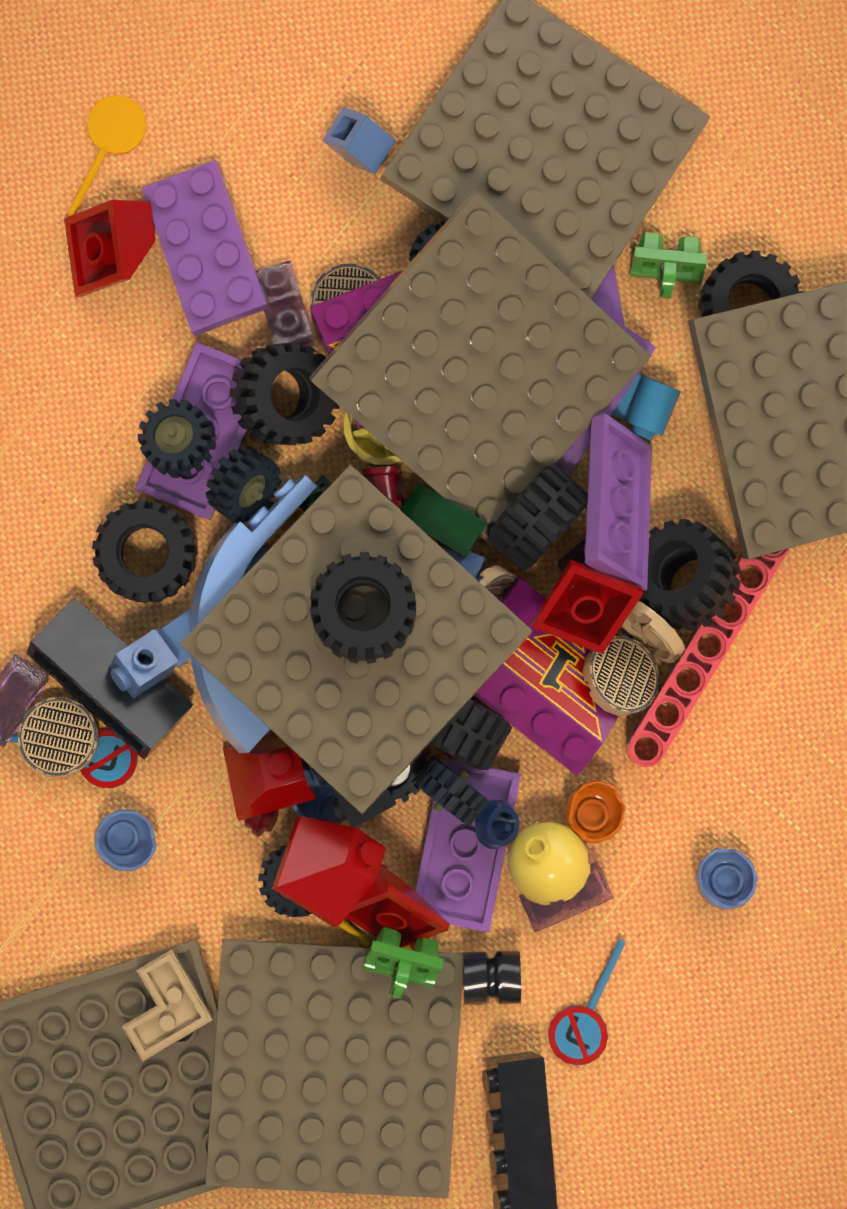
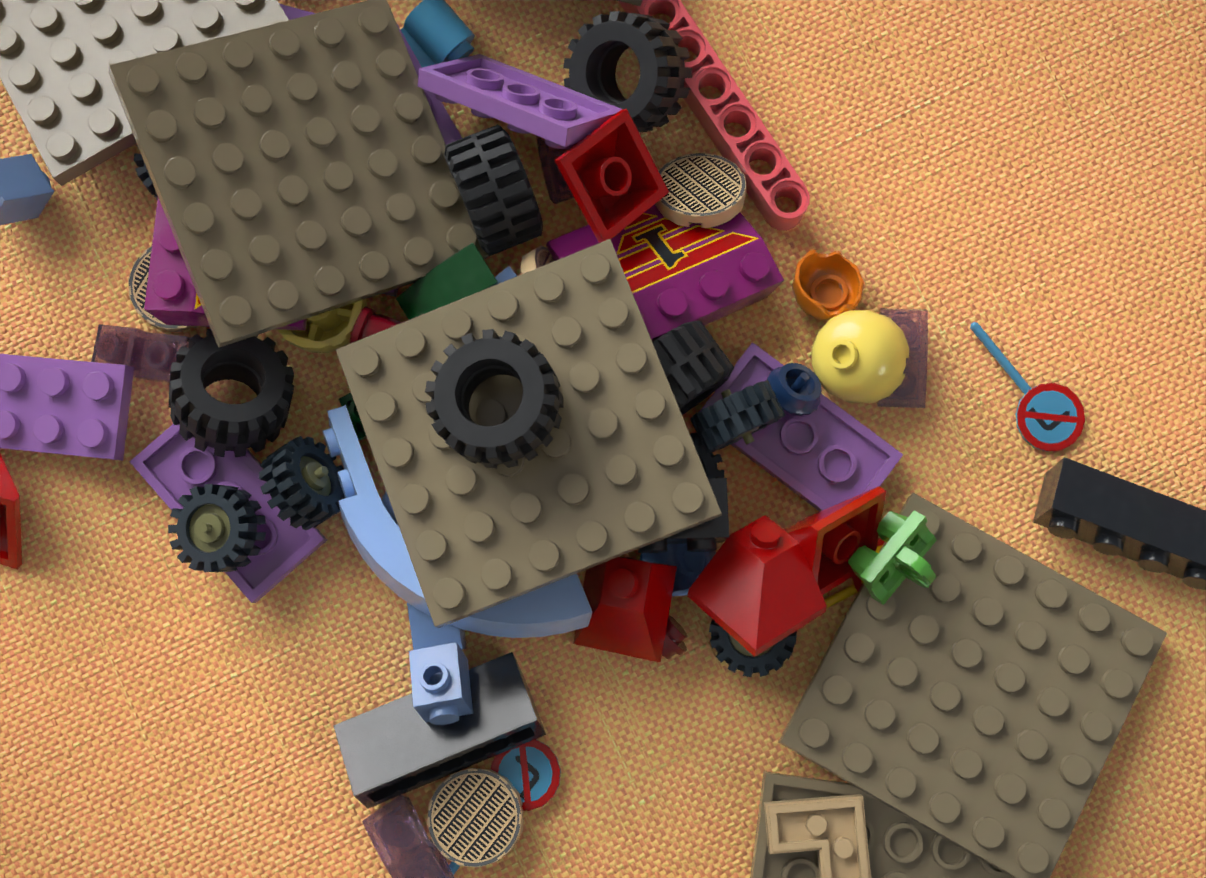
camera: 70 degrees left, 5 degrees down
(112, 540) = (282, 624): black tyre -> none
(125, 840) = (622, 797): medium blue hair -> none
(492, 977) = (953, 472): black wheel -> none
(648, 627) = (674, 130): tan tile -> none
(726, 879) = (959, 186): medium blue hair -> none

